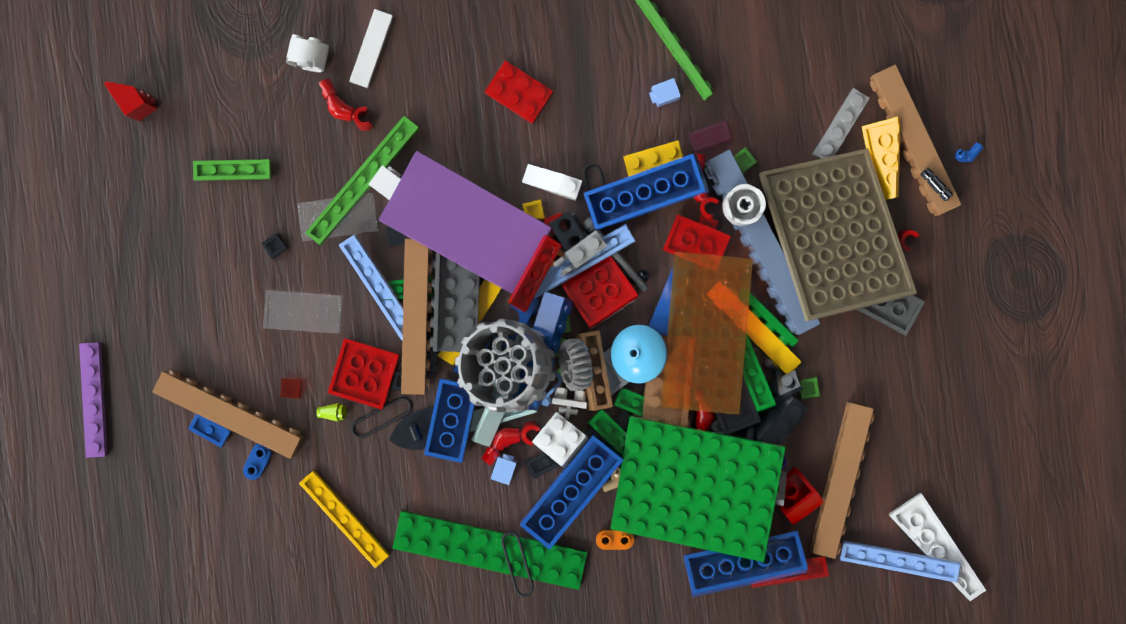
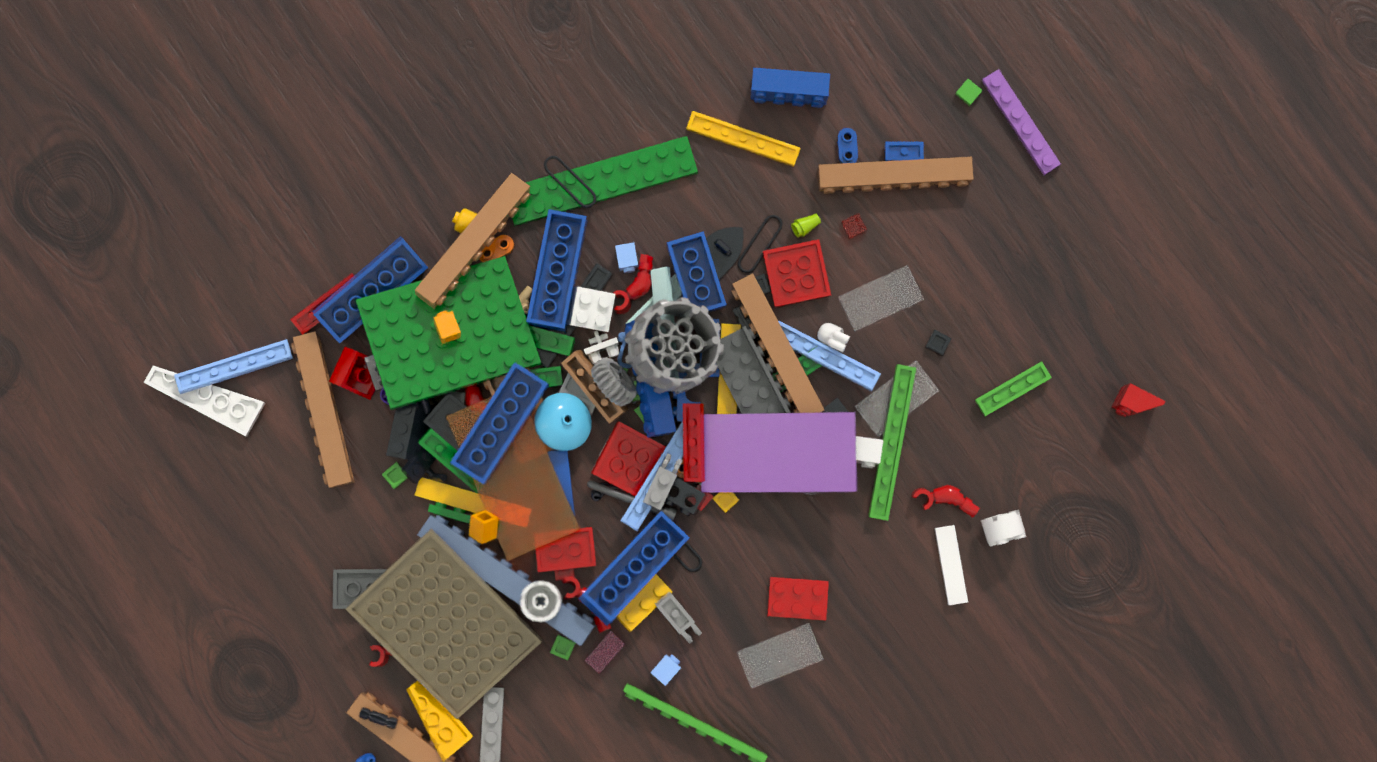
camera: 150 degrees right, 5 degrees down
(123, 451) = (968, 92): none -> bright green tile
(277, 542) = (790, 87): none -> blue brick
(362, 300) = (833, 336): none -> white piece
(552, 182) = (723, 533): white slope -> none
(560, 52) = (780, 655): none -> clear tile
(627, 577) = (463, 219): none -> yellow head
(631, 132) = (677, 615): none -> light grey hinge
(631, 558) = (472, 241): none -> medium nougat brick
(696, 381) = (499, 423): none -> blue brick
(696, 493) = (447, 327): none -> light orange brick
(758, 299) = (483, 526): none -> light orange brick

